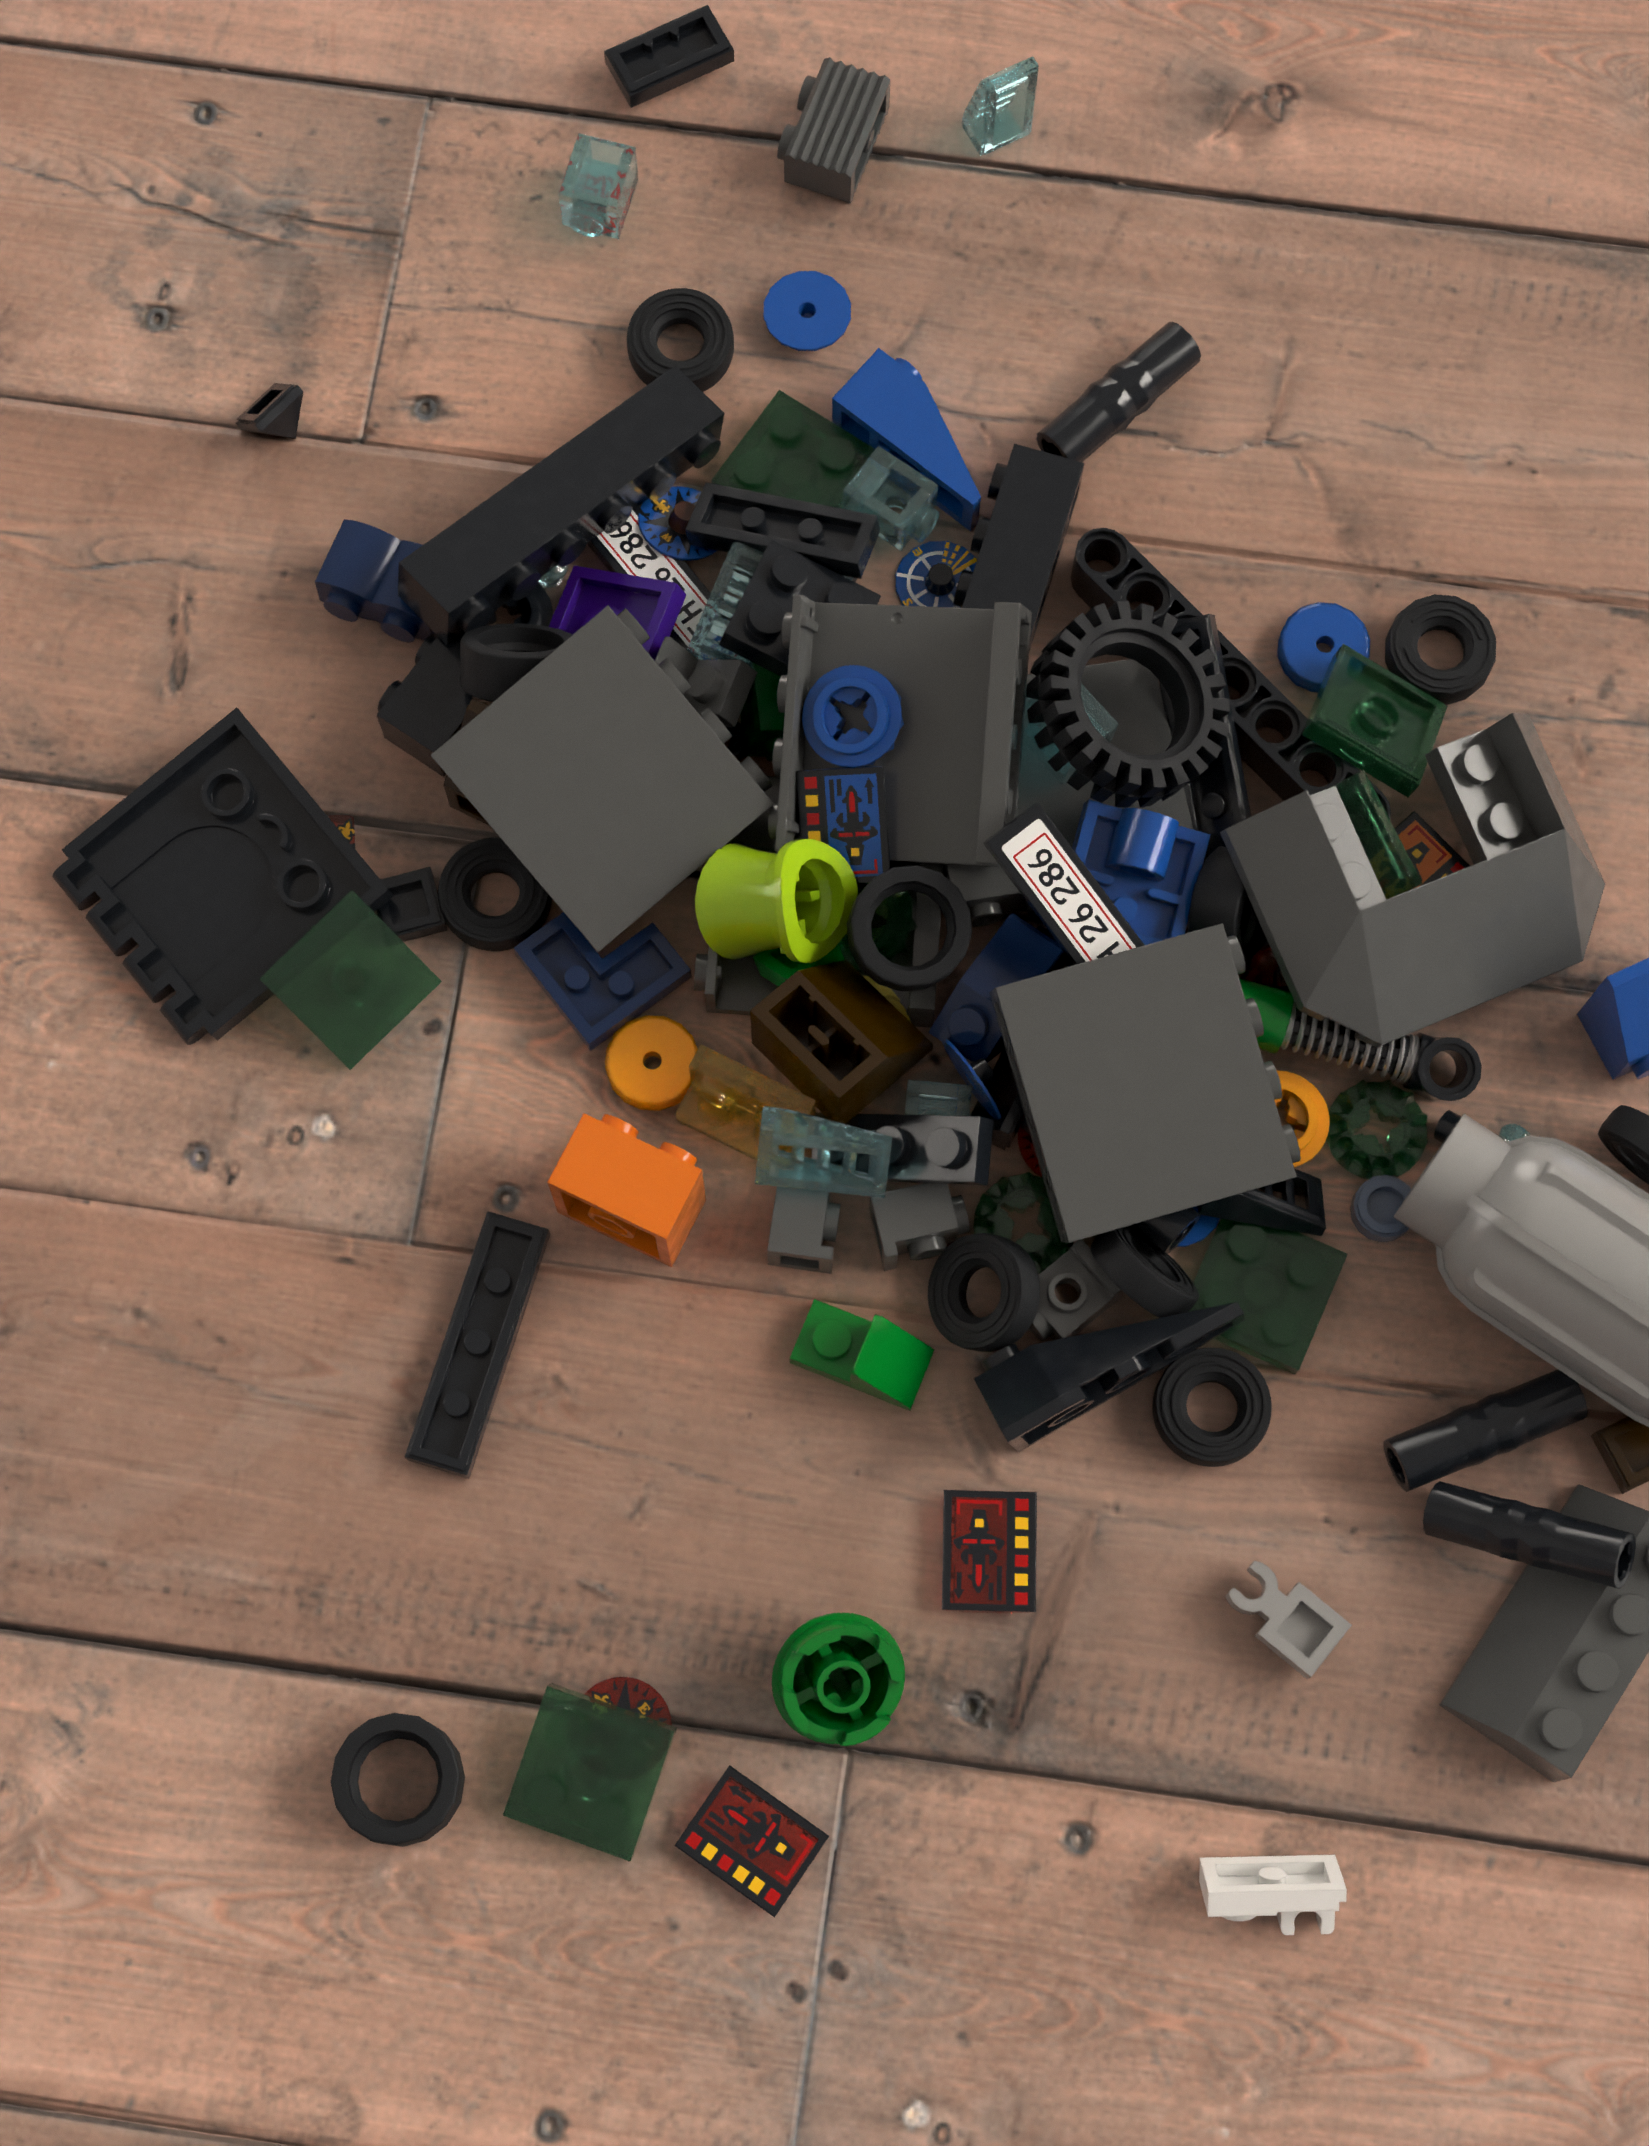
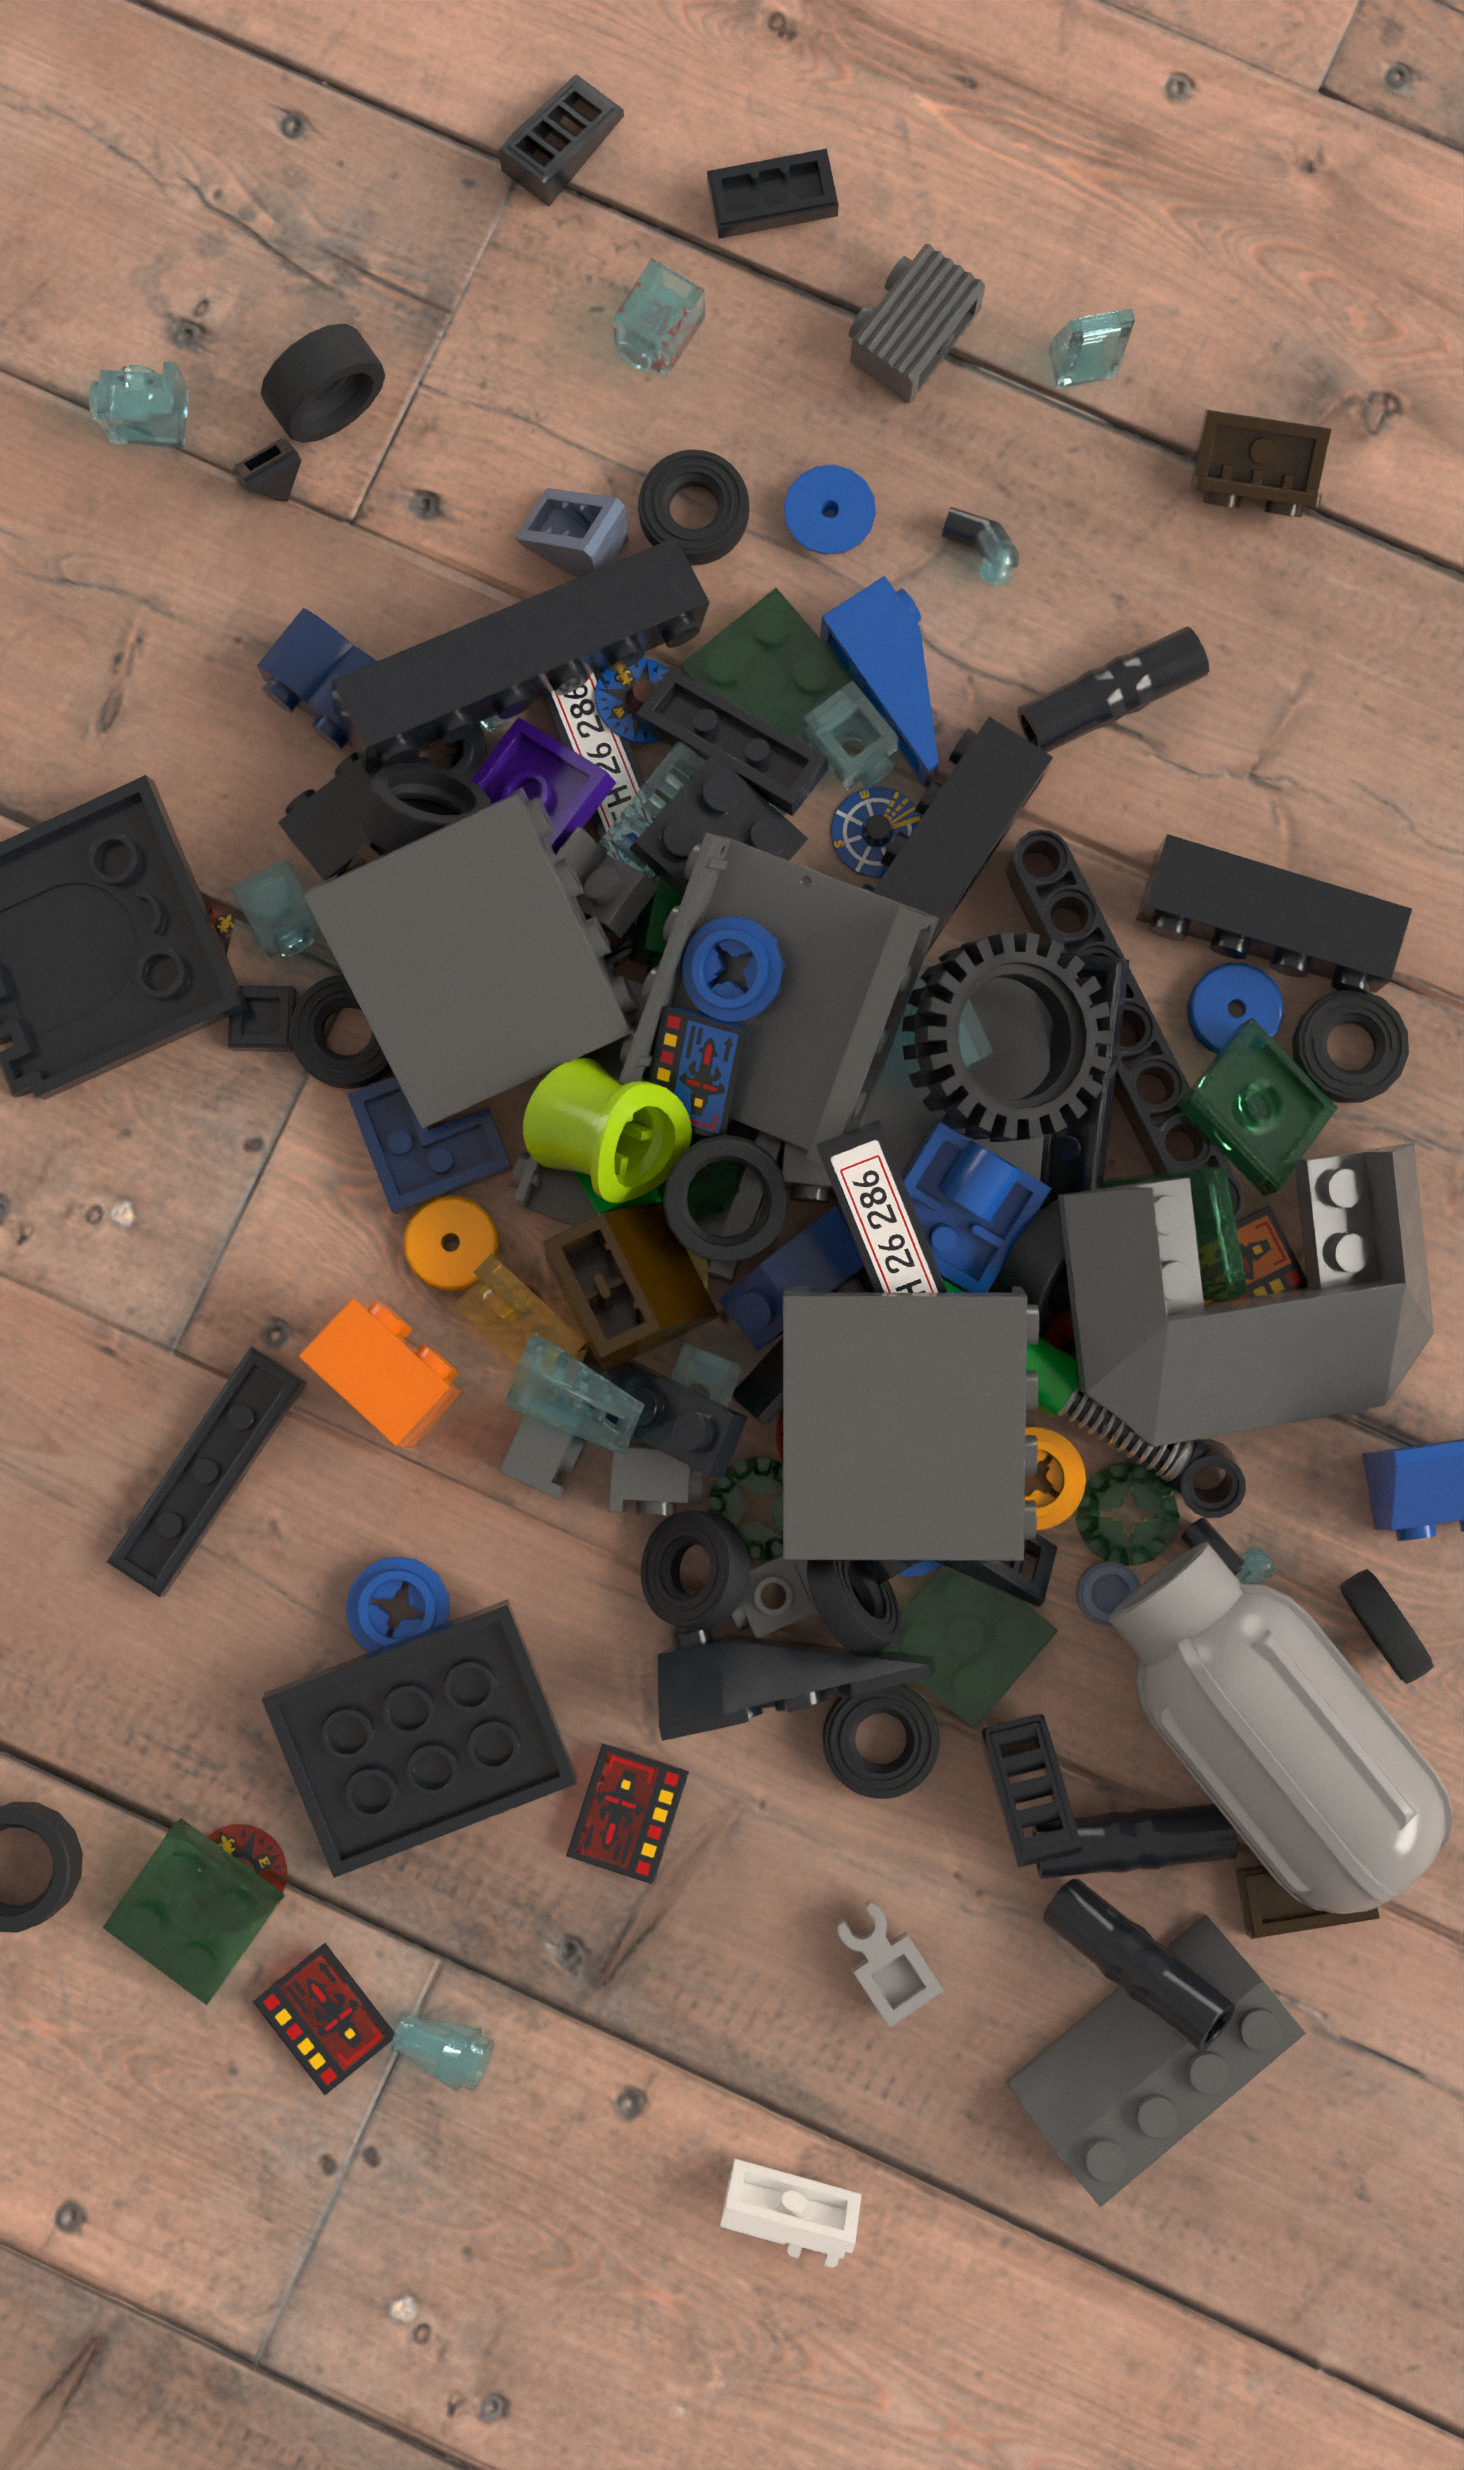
camera: 20 degrees right, 10 degrees up
(135, 386) = (141, 405): none -> clear light blue brick
(304, 318) = (322, 383): none -> black tyre
(350, 979) = (181, 1082): clear green plate -> none
(396, 802) = (277, 910): none -> clear light blue bracket
(458, 97) = (549, 180): none -> black slope
(577, 387) = (576, 530): none -> sand blue slope
(683, 1398) = (384, 1580): none -> blue gear
(765, 1534) = (420, 1738): none -> black plate
(838, 1679) = (443, 1901): green cone -> none
(862, 1354) = (565, 1589): green slope -> none
(880, 1833) = (445, 2050): none -> clear light blue cone
(959, 297) = (990, 541): none -> arm
(976, 1074) = (750, 1359): blue piece -> none
(1185, 166) = (1260, 461): none -> dark brown bracket
(1329, 551) = (1273, 916): none -> black brick
(1353, 1368) = (1019, 1749): none -> black slope

